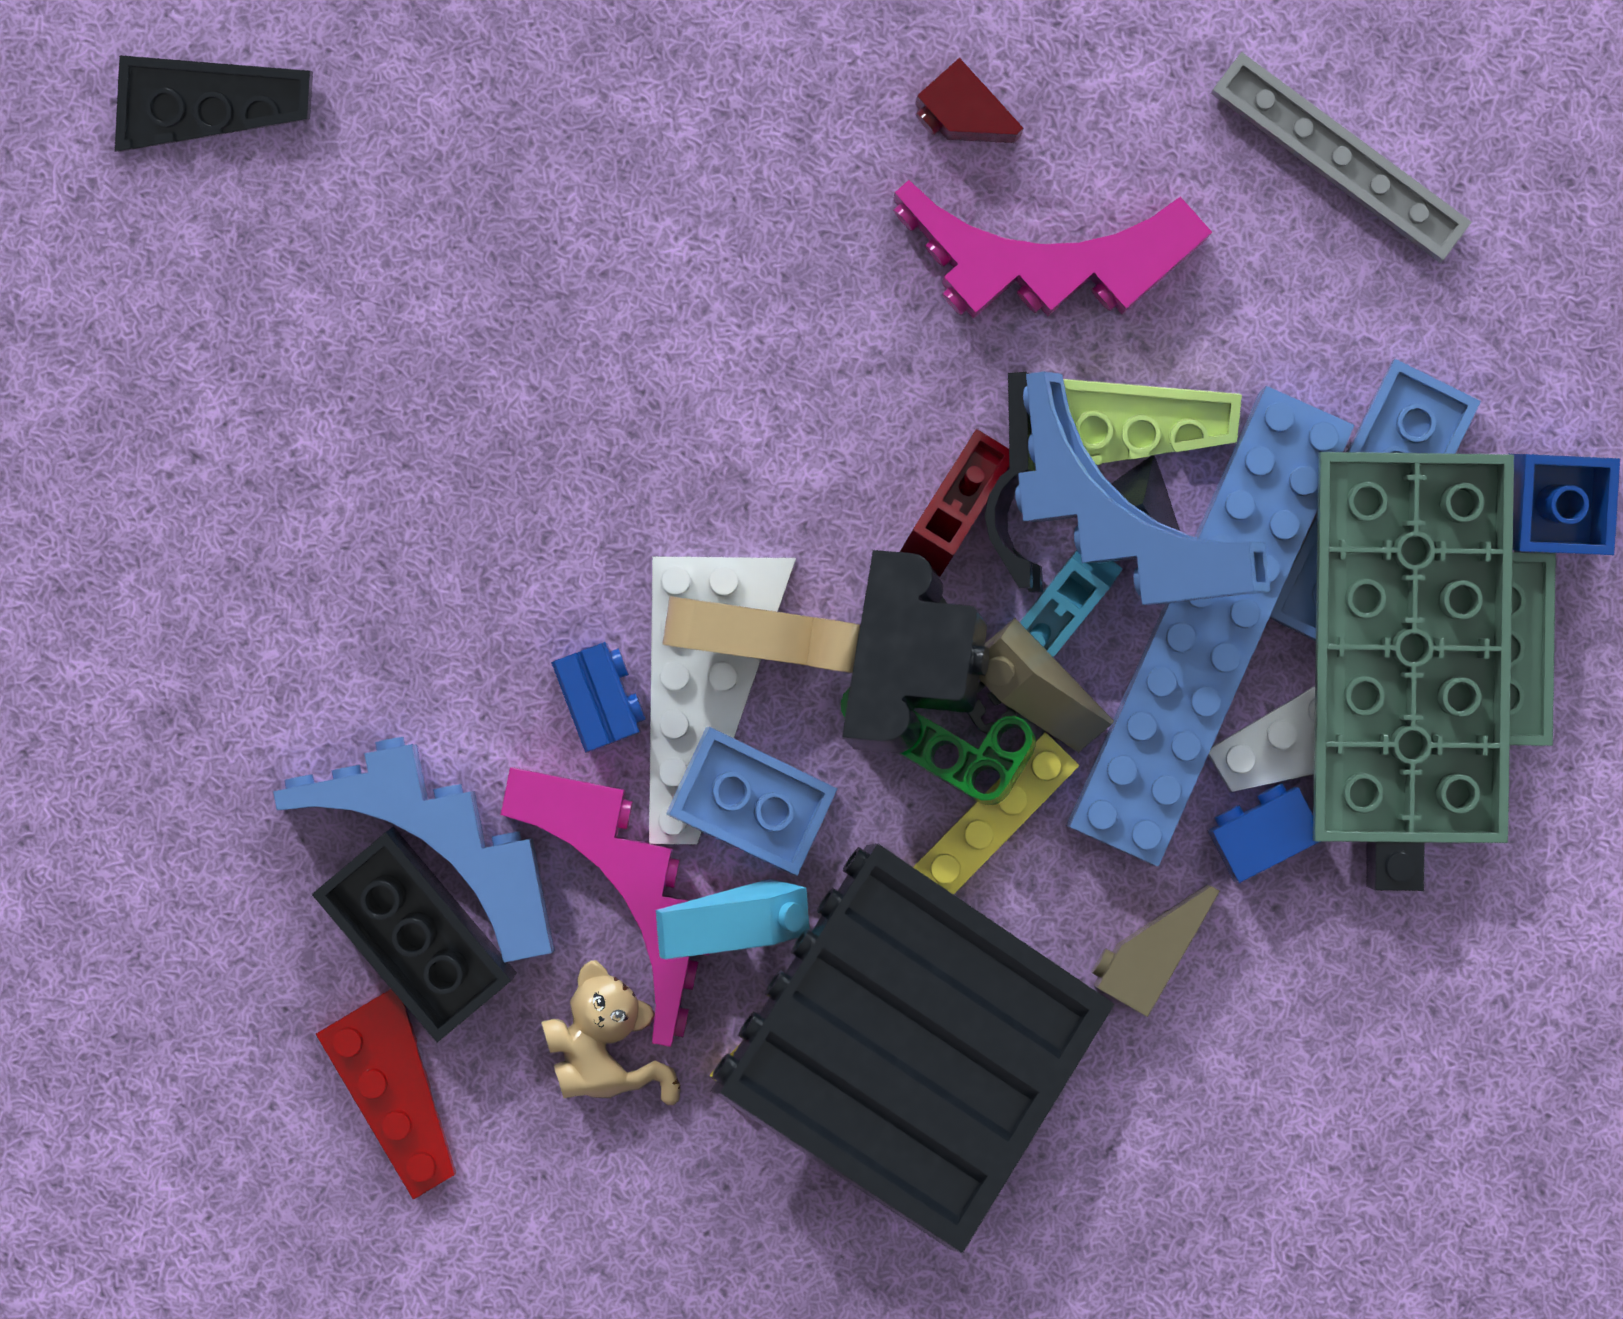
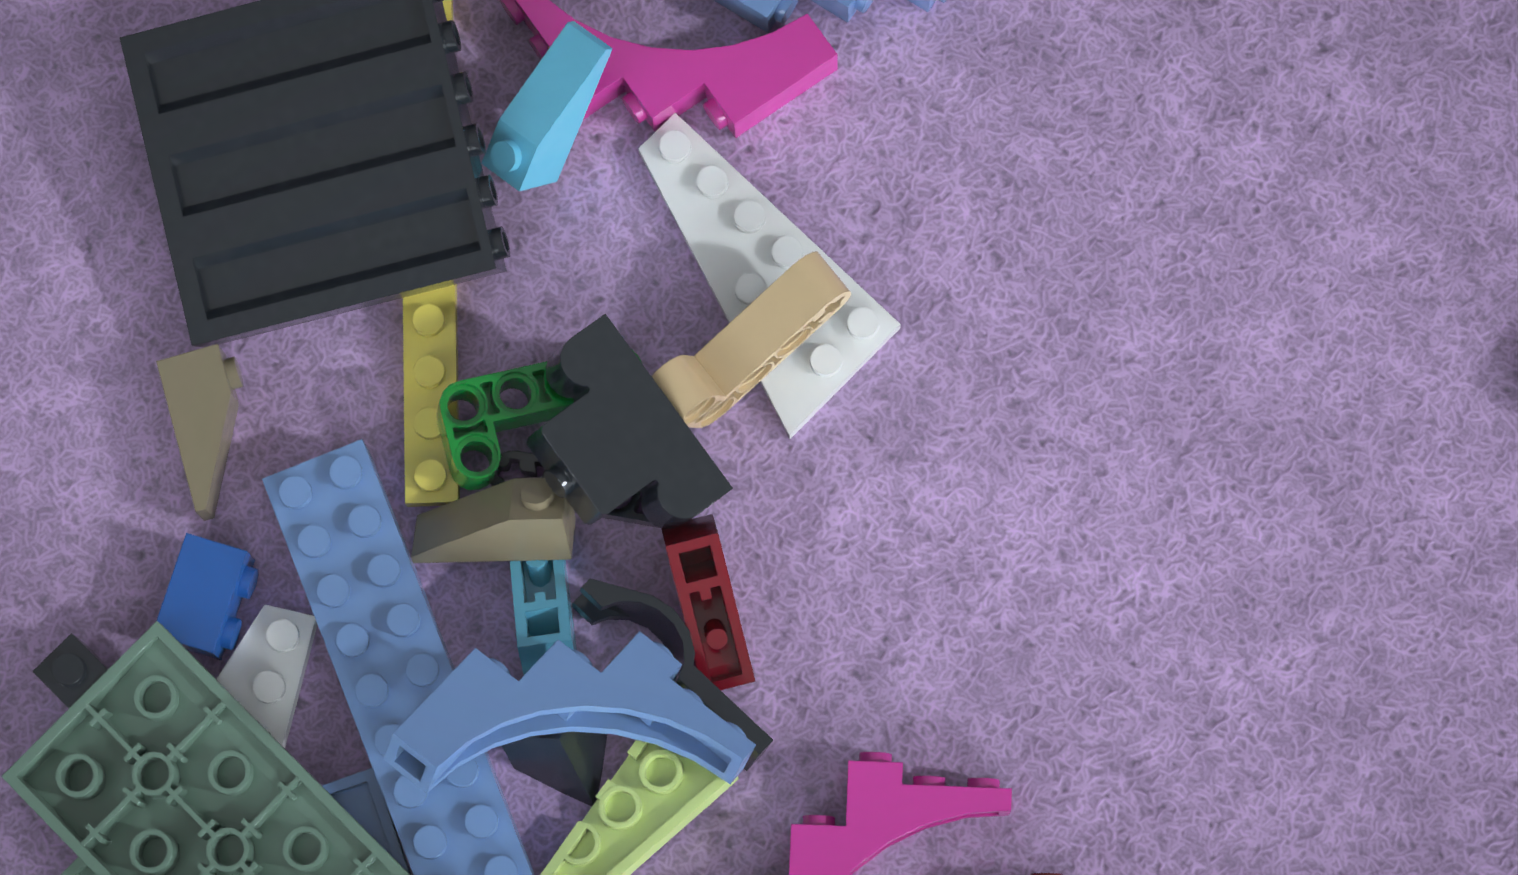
camera: 140 degrees right, 10 degrees down
(598, 697) = (828, 177): blue brick -> none
(751, 801) = (629, 217): medium blue plate -> none

